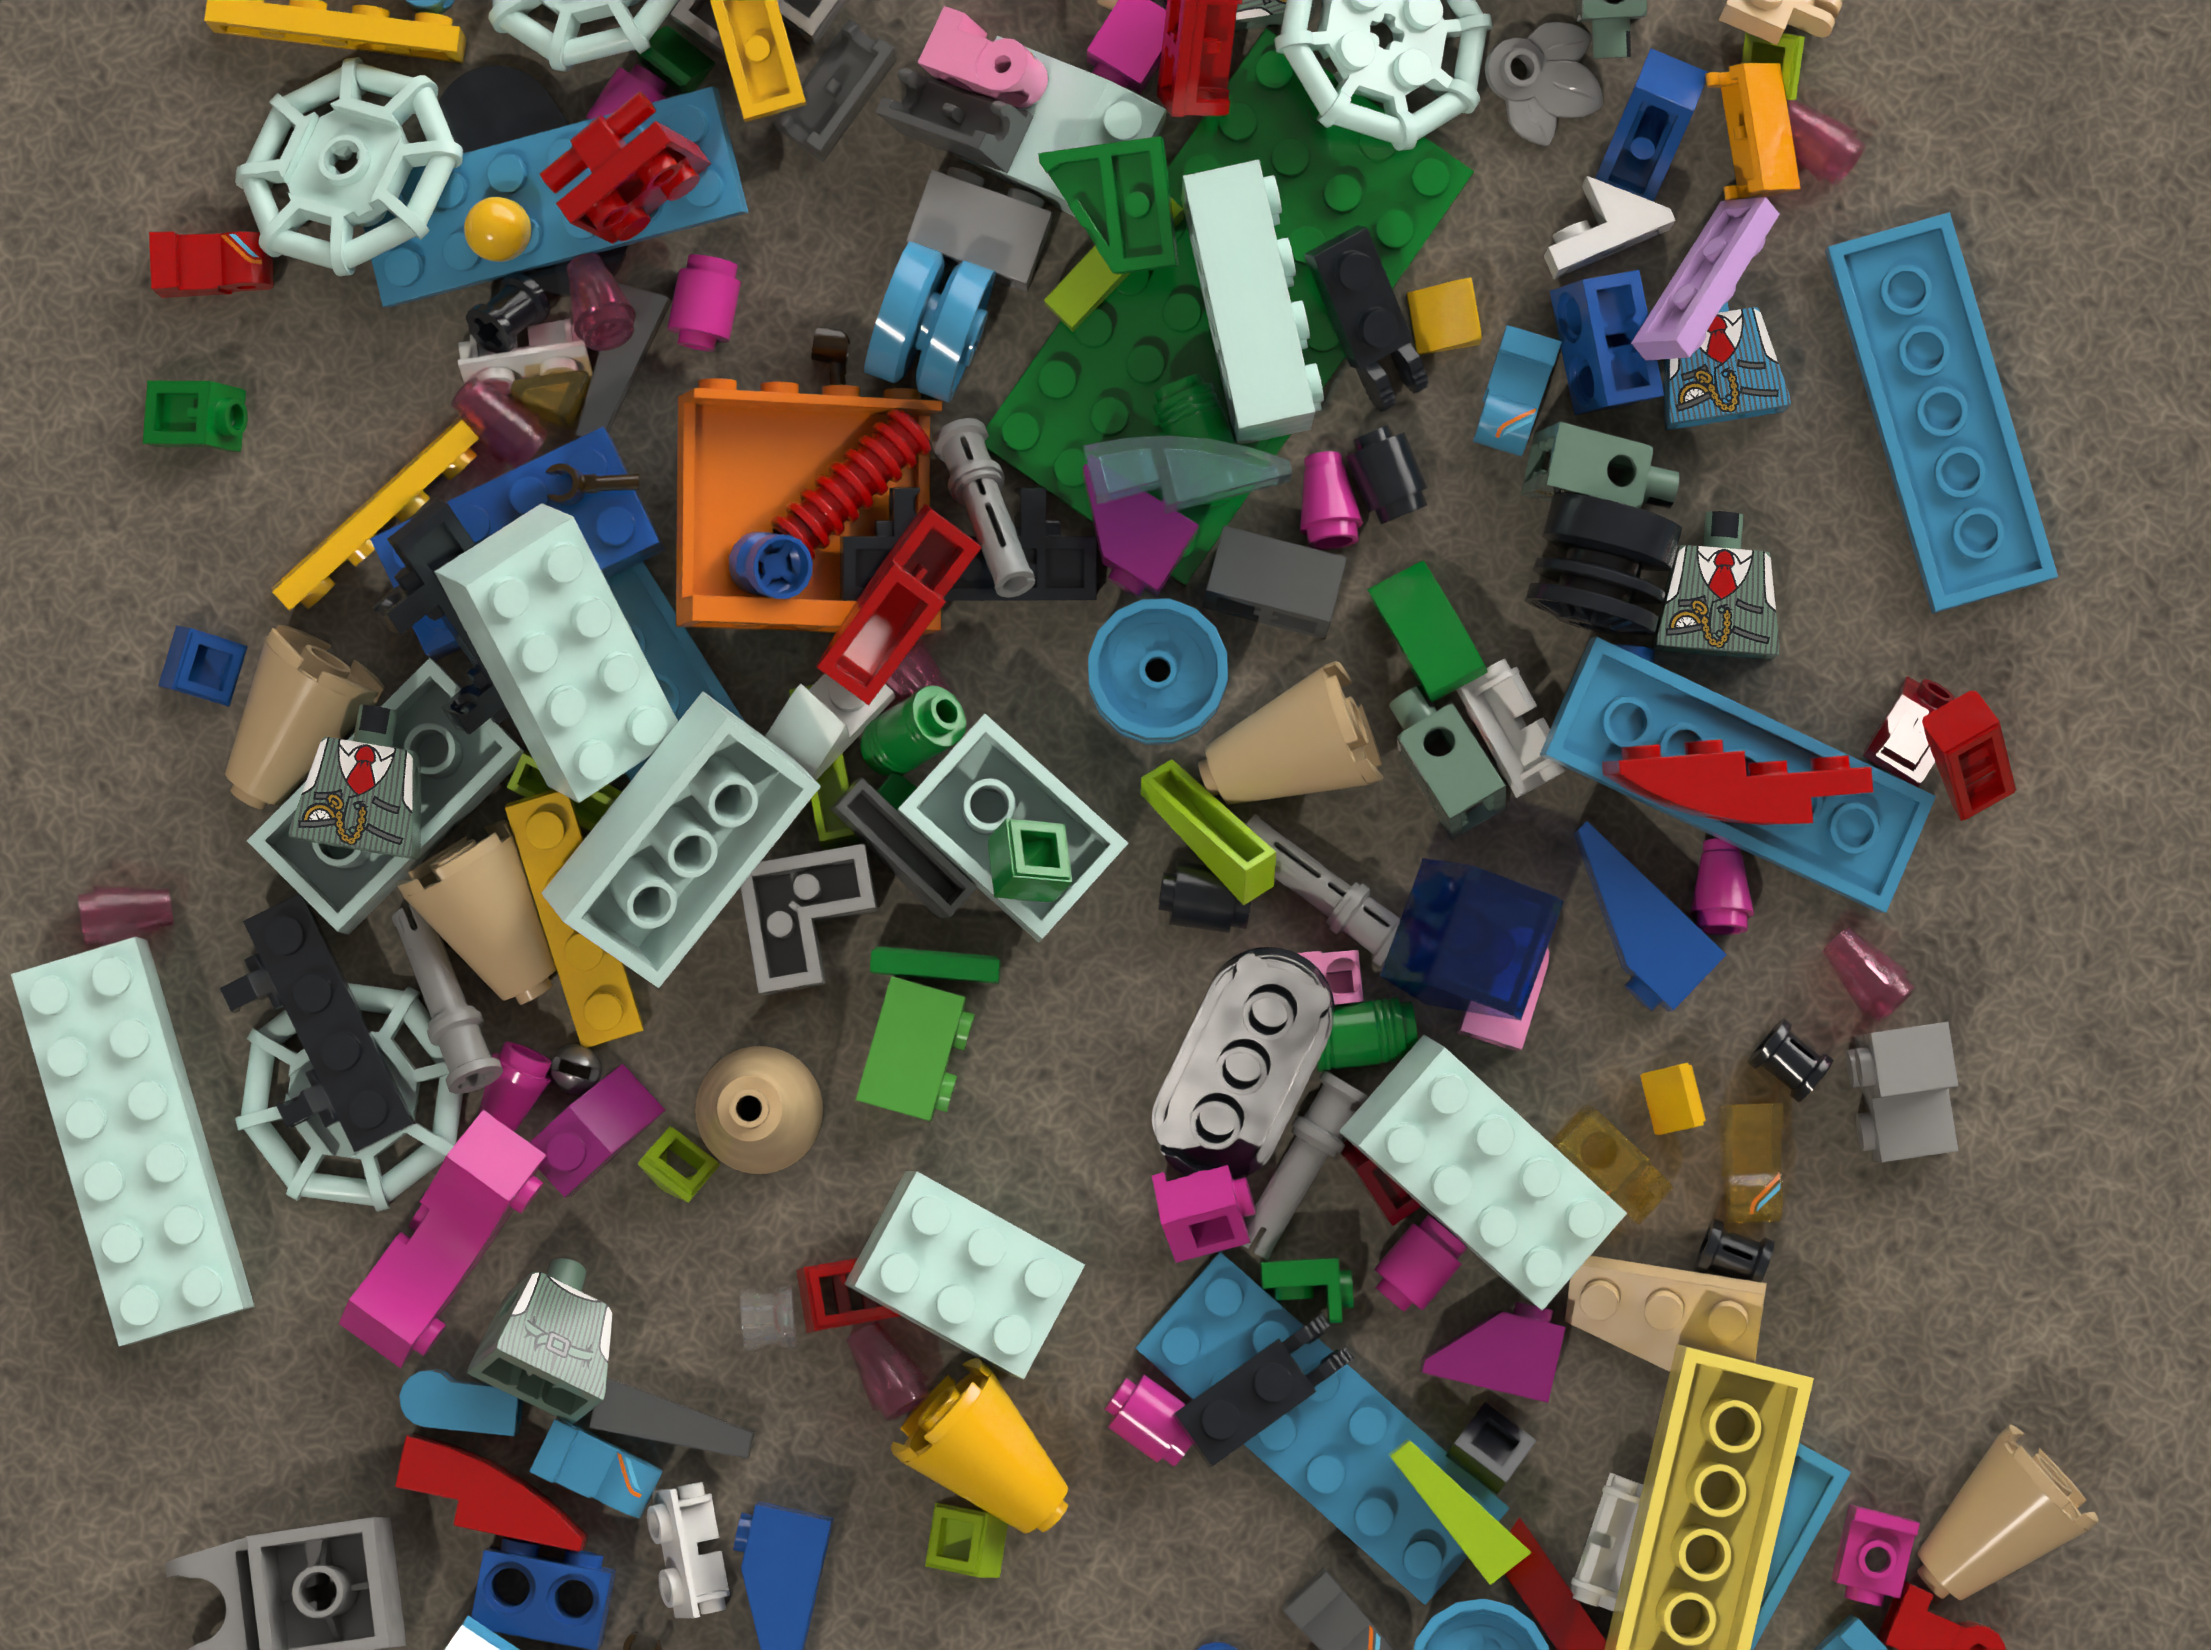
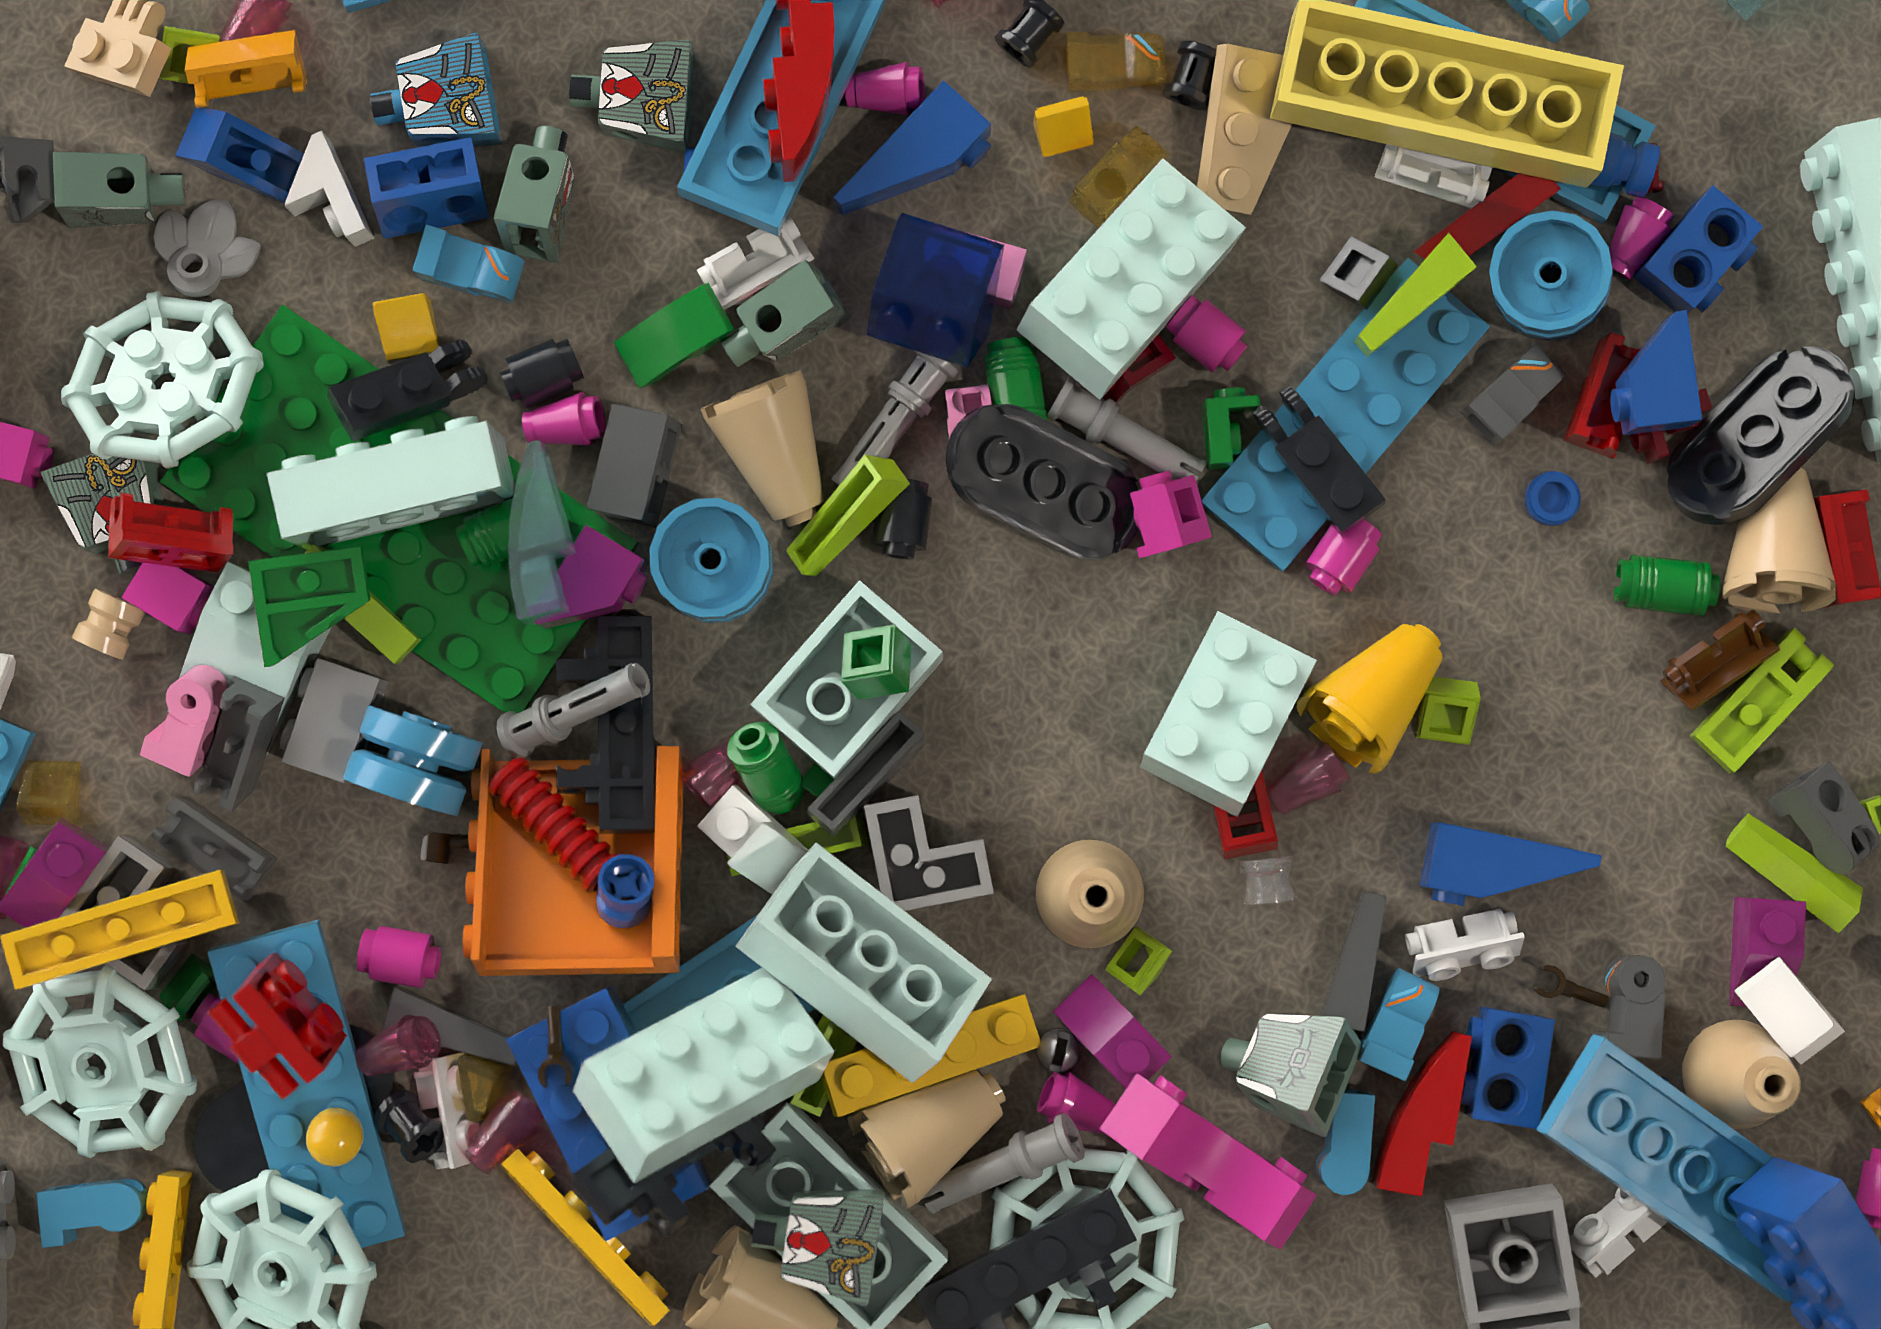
camera: 90 degrees left, 0 degrees up
(898, 604) = (657, 780): red slope -> none
(914, 1050) = (1037, 762): bright green brick -> none
(935, 965) = (964, 745): green tile -> none
(1503, 1353) = (1280, 263): magenta slope -> none
(1603, 564) = (604, 184): black wheel -> none
(1705, 279) = (371, 102): lavender plate -> none

